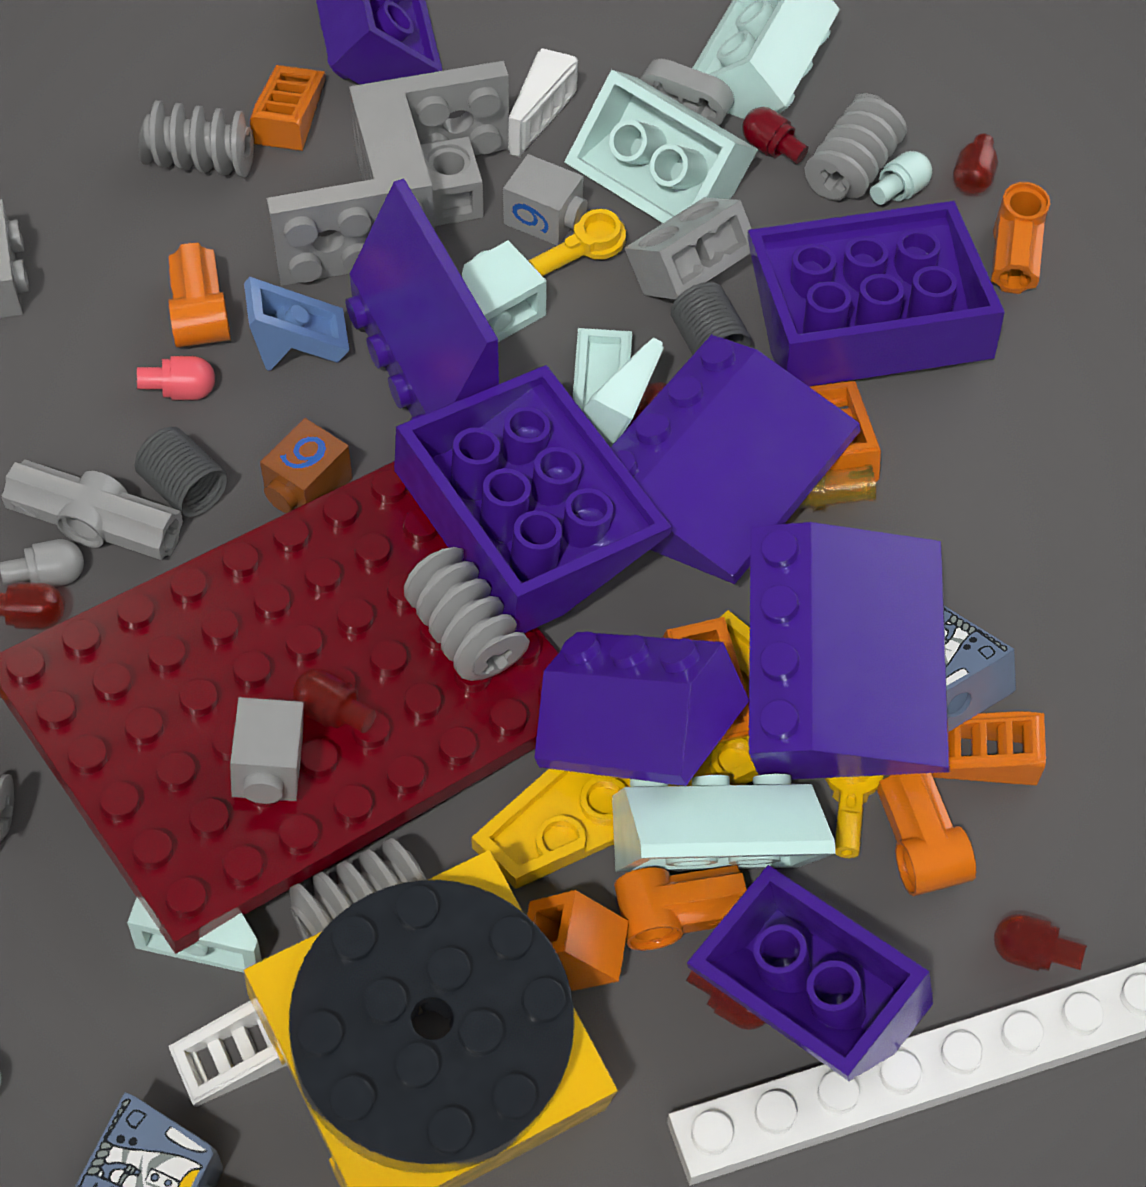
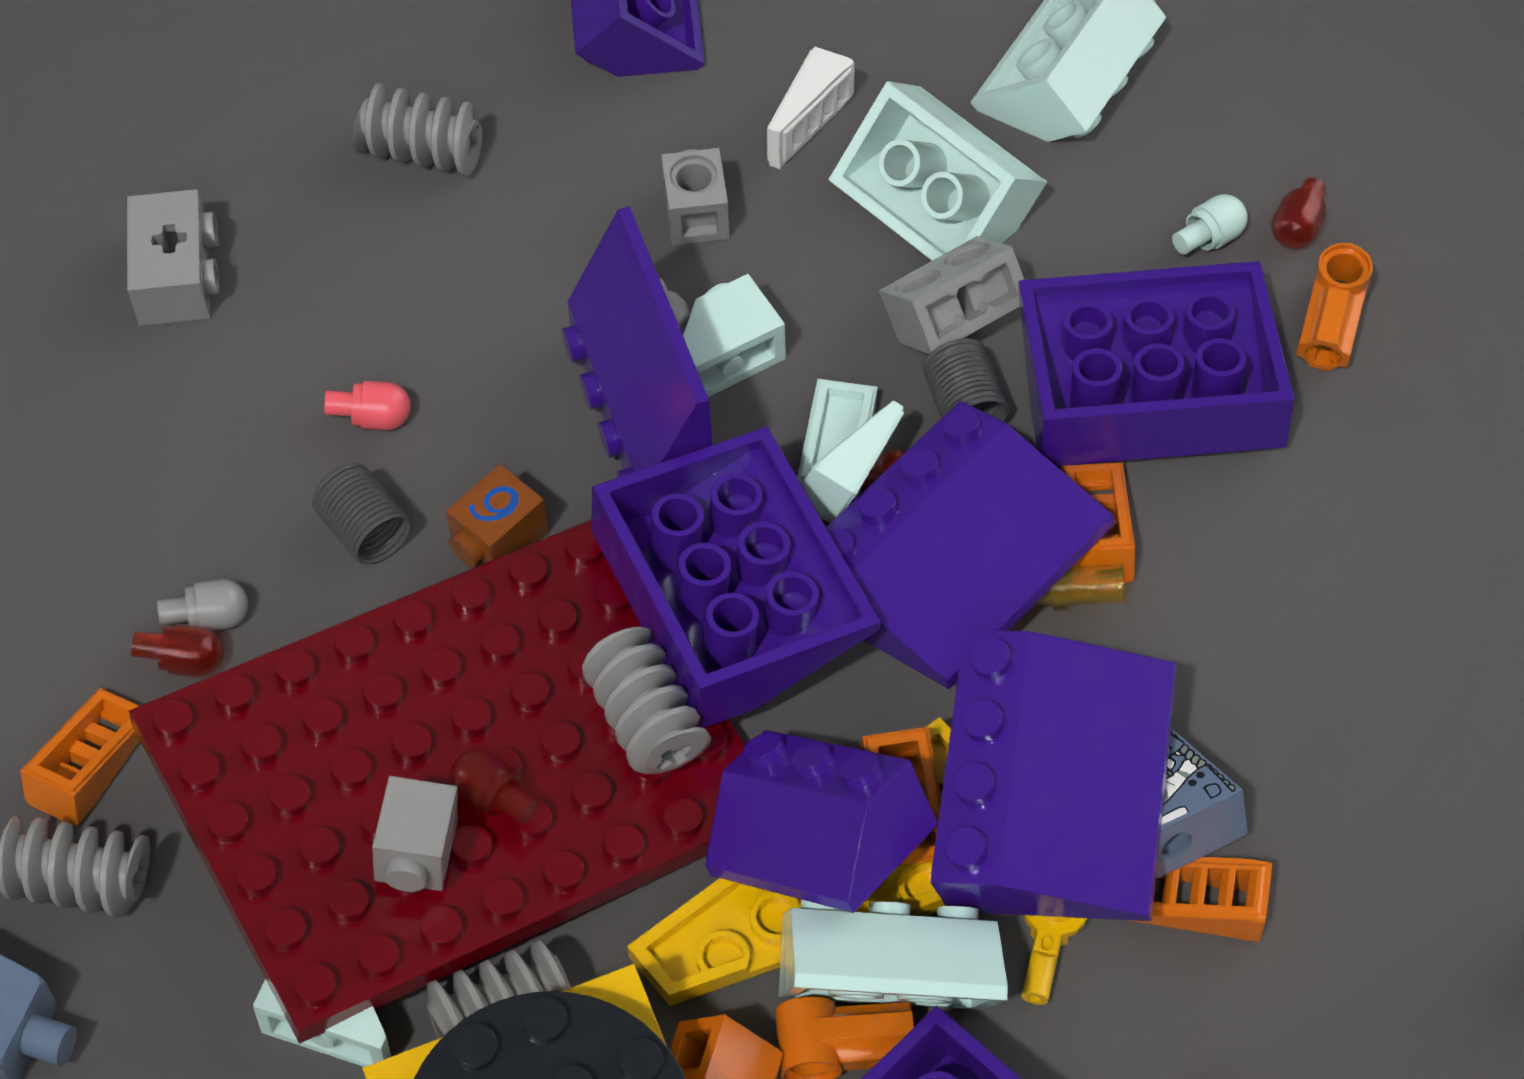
camera: 10 degrees right, 0 degrees up
(92, 509) = (262, 548): light grey piece -> none
(197, 304) = (400, 326): orange piece -> none
(285, 117) = (520, 123): orange slope -> none
(295, 321) = (501, 350): medium blue slope -> none
(388, 129) = (629, 133): light grey bracket -> none
(543, 200) = (797, 226): light grey brick -> none
(596, 236) = (852, 271): yellow plate -> none
(691, 88) = (981, 104): light grey beam -> none
(773, 134) = (1069, 163): dark red cylinder -> none
(855, 148) = (1160, 187): light grey piece -> none
(928, 847) = (1124, 1001): orange piece -> none

